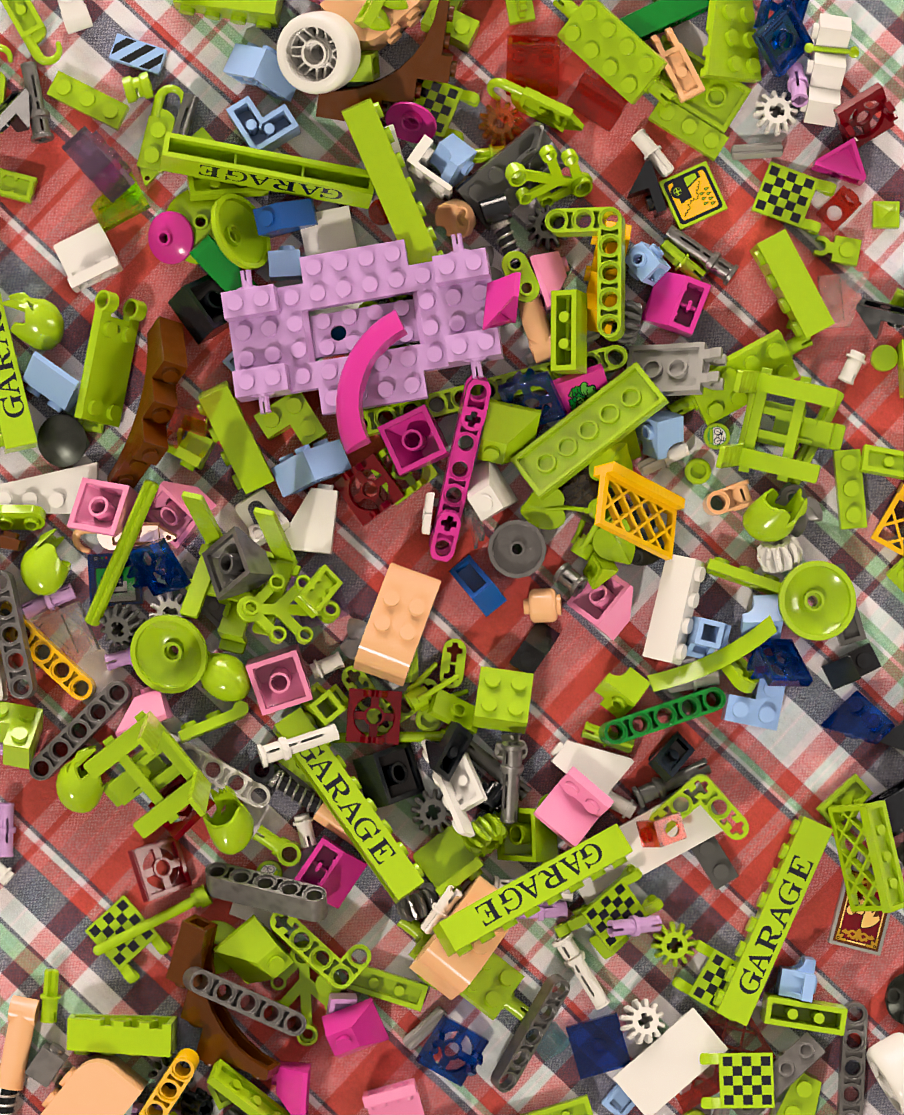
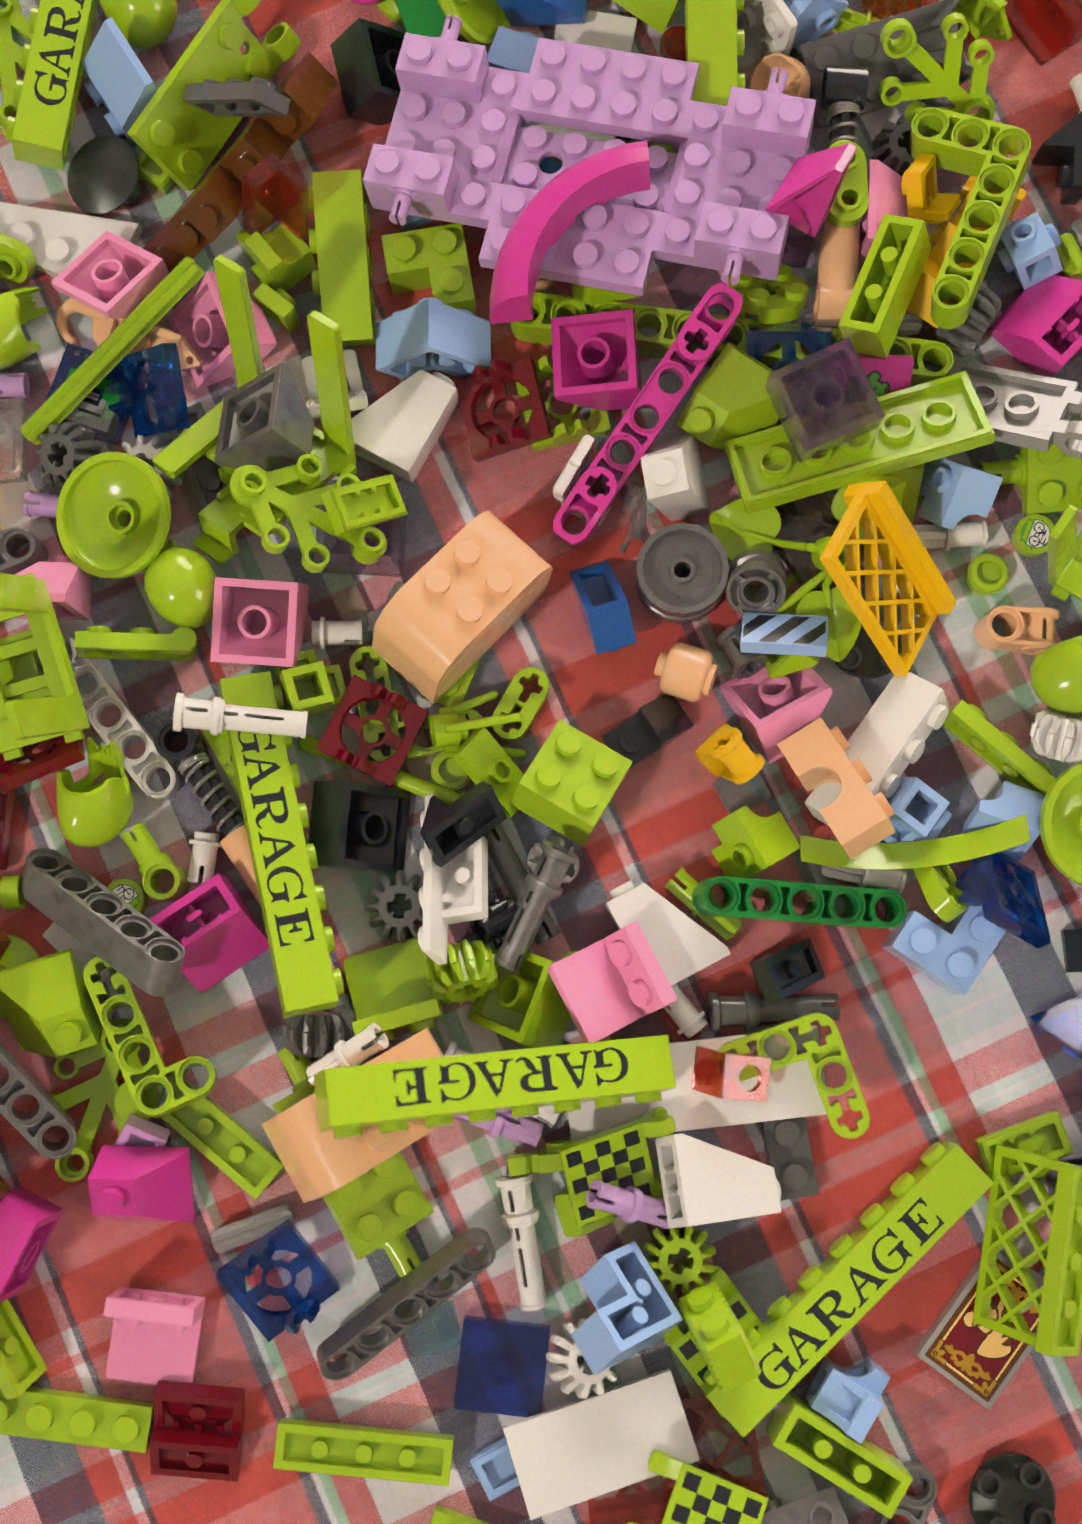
camera: 25 degrees right, 5 degrees down
(135, 372) = (237, 98): none -> dark grey plate
(206, 479) = (277, 306): none -> lime plate
(513, 360) = (770, 299): none -> lime plate
(560, 421) = (824, 400): none -> brick
(563, 538) = (756, 566): none -> flat silver wheel
(569, 259) = (923, 199): none -> yellow bracket
(588, 645) = (729, 755): none -> yellow piece
(591, 563) = (784, 634): none -> light blue tile
(603, 661) = (736, 796): none -> clear light blue slope
(656, 984) = (629, 1307): none -> light blue brick
(674, 655) = (856, 815): none -> light nougat arch
(675, 895) = (712, 1183): none -> white slope
(710, 977) = (719, 1337): none -> lime brick

